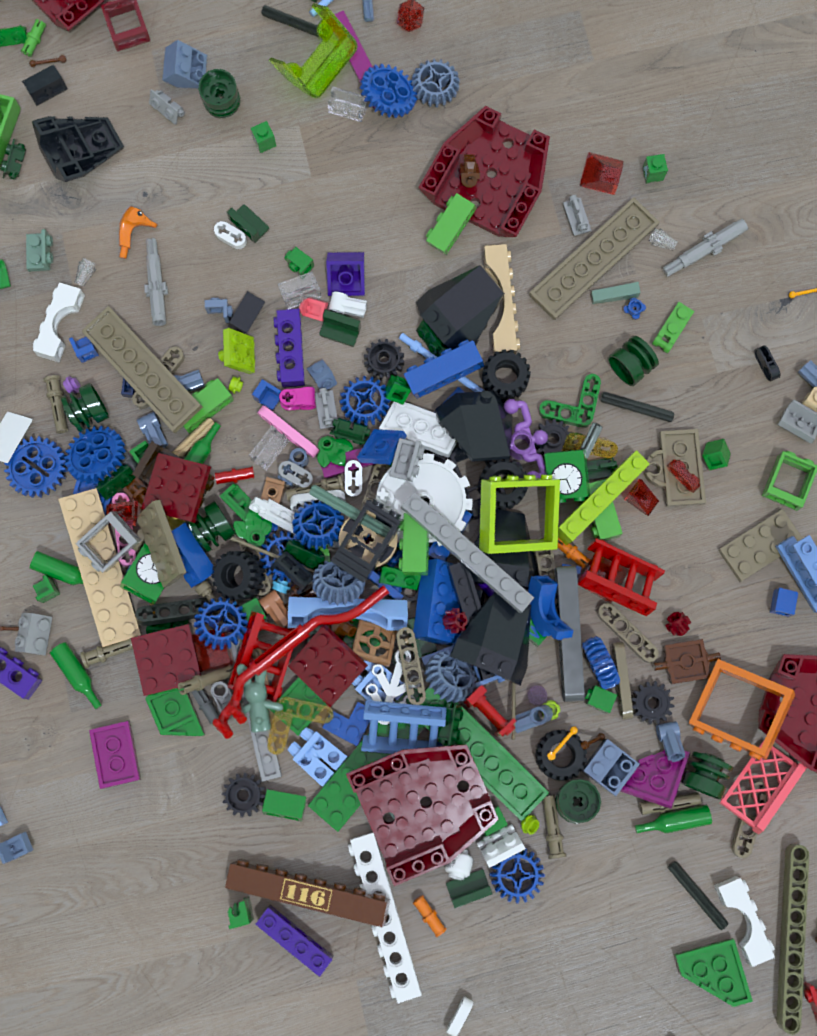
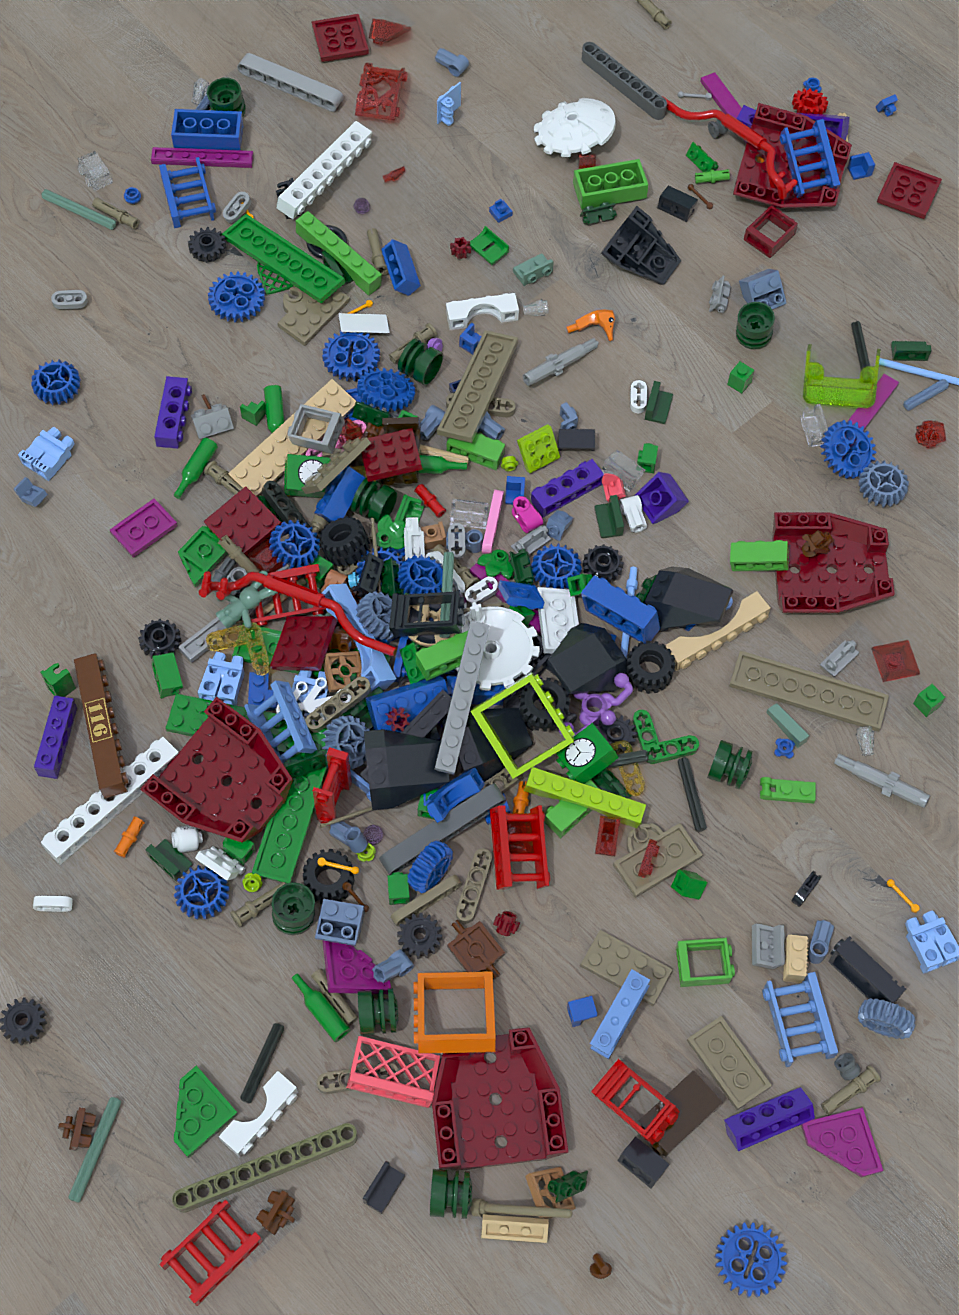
camera: 60 degrees right, 15 degrees down
(406, 460) = (518, 613): light grey bracket -> none

